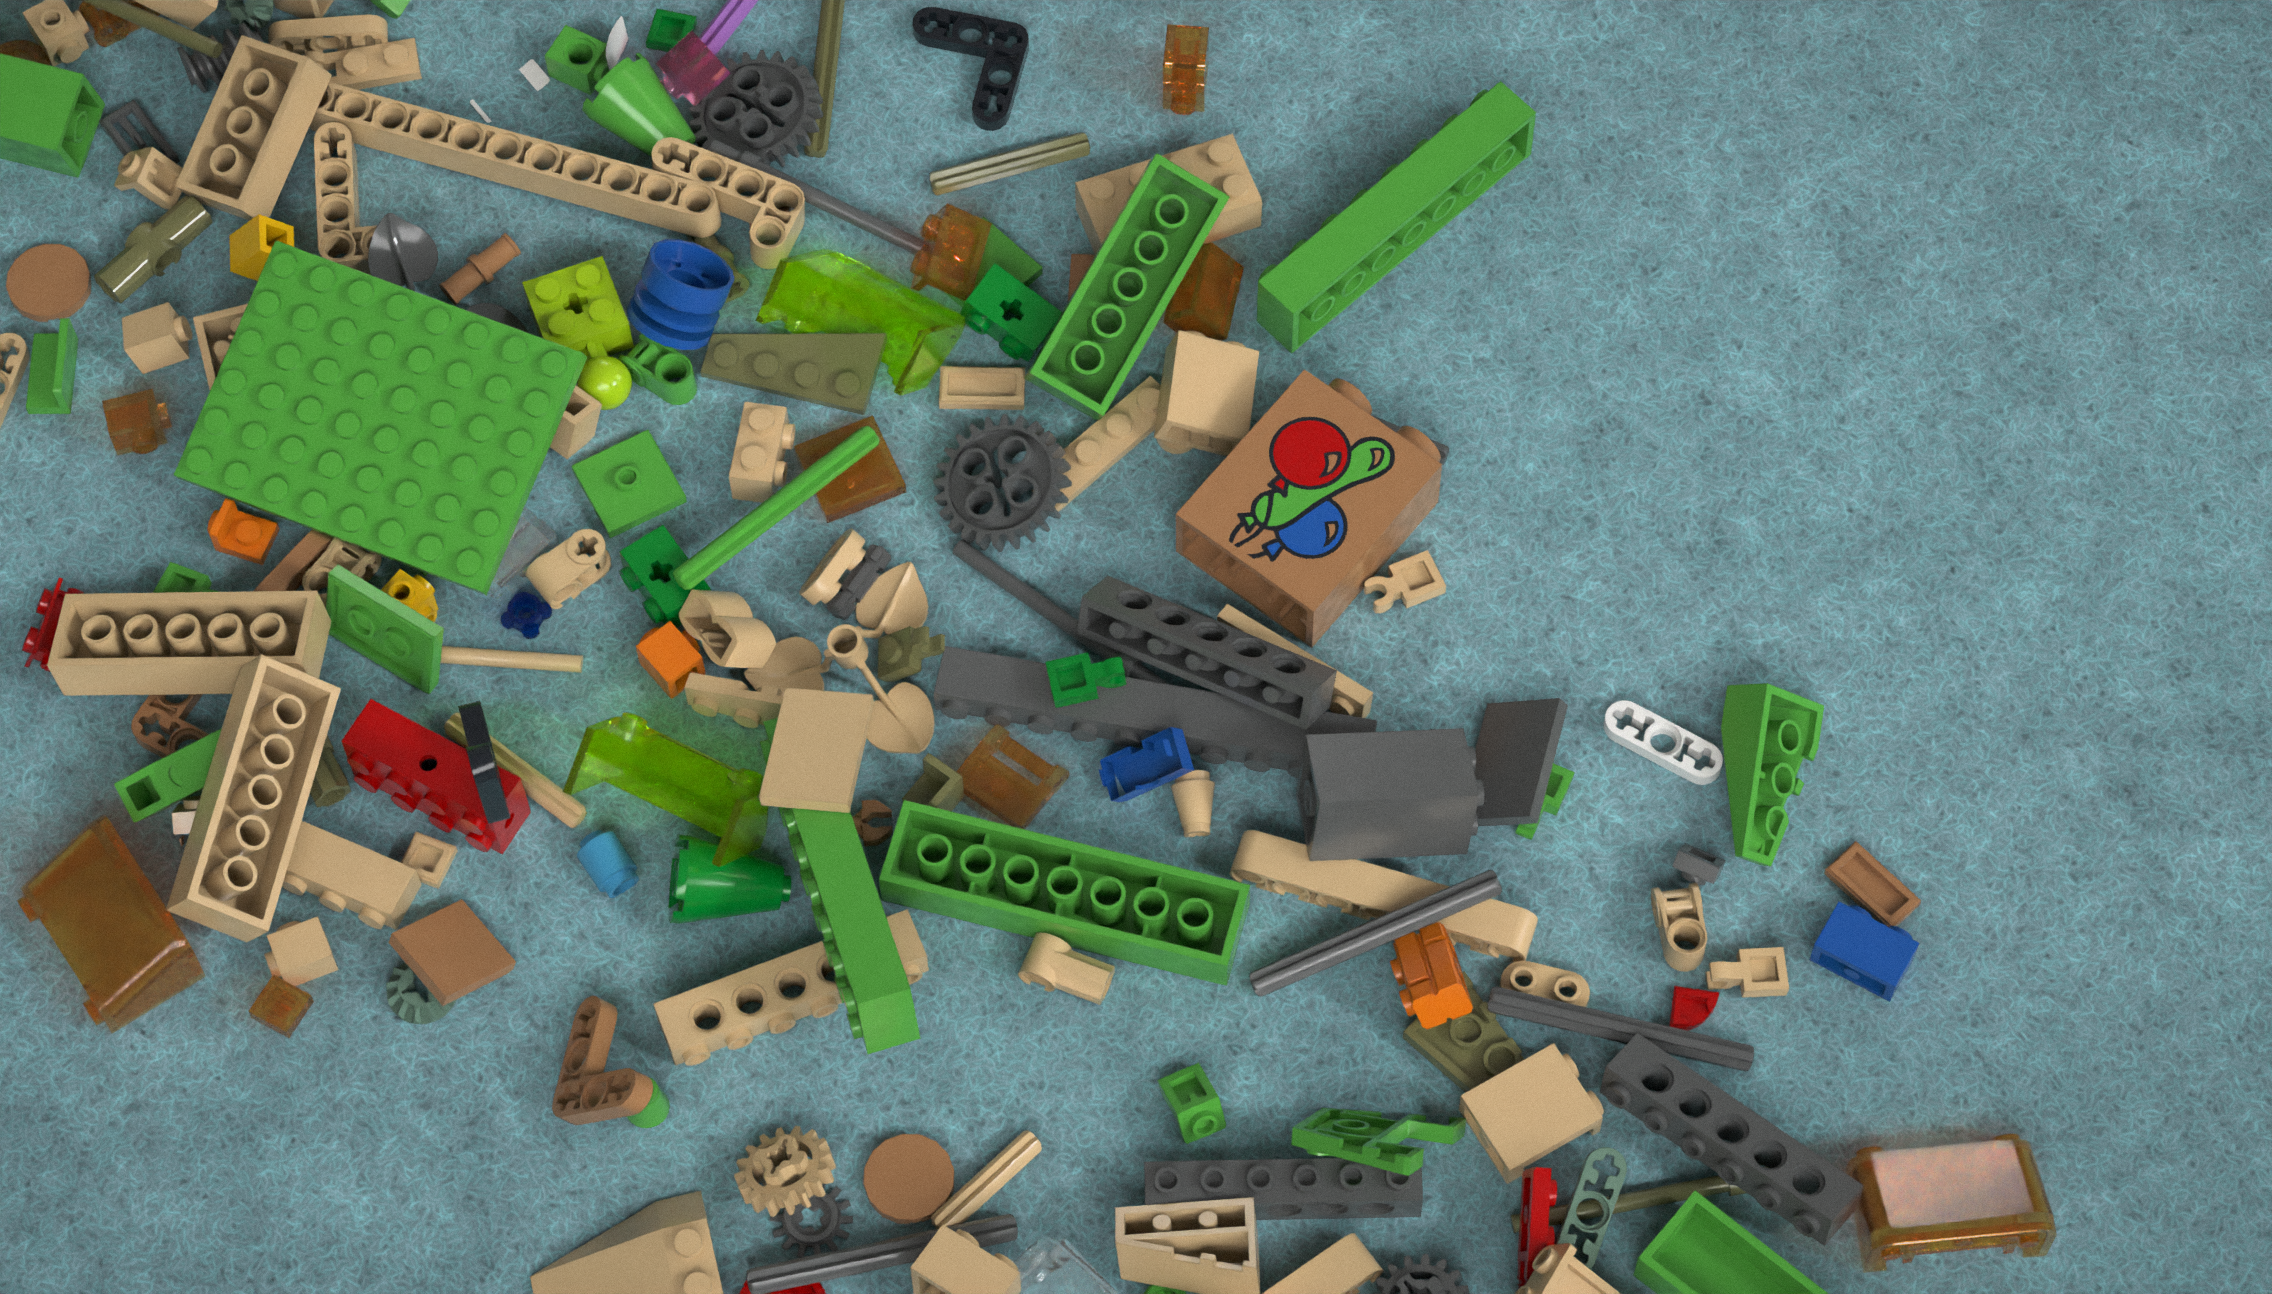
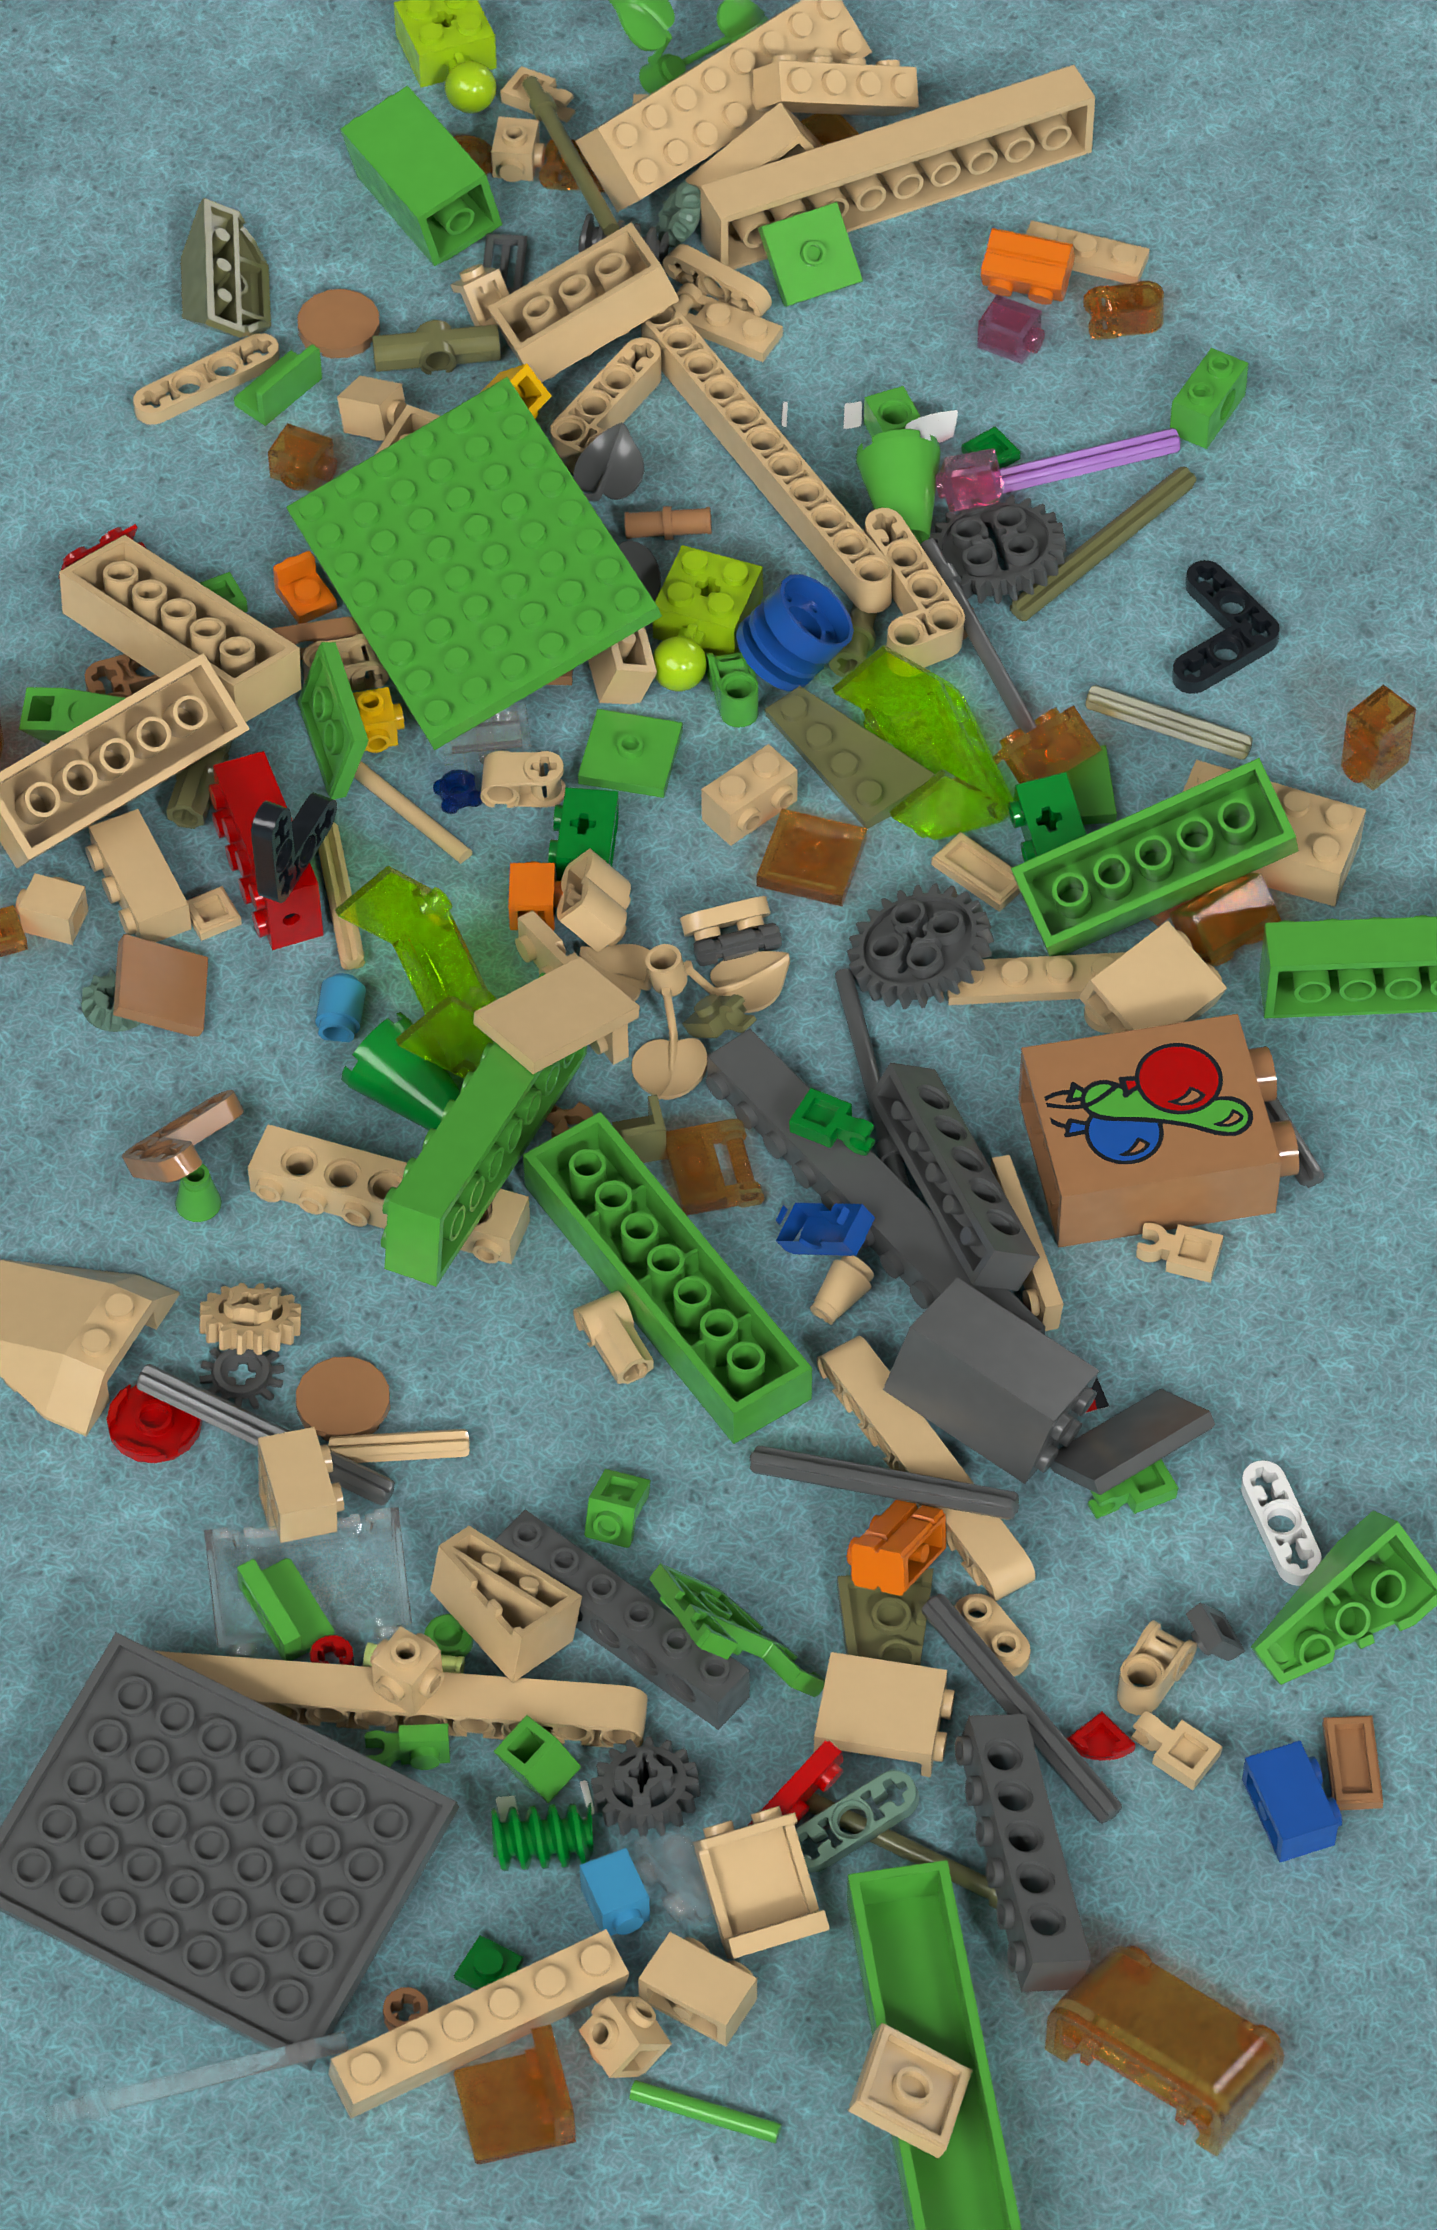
camera: 40 degrees right, 10 degrees down
(776, 508) = (717, 837): bright green axle -> none

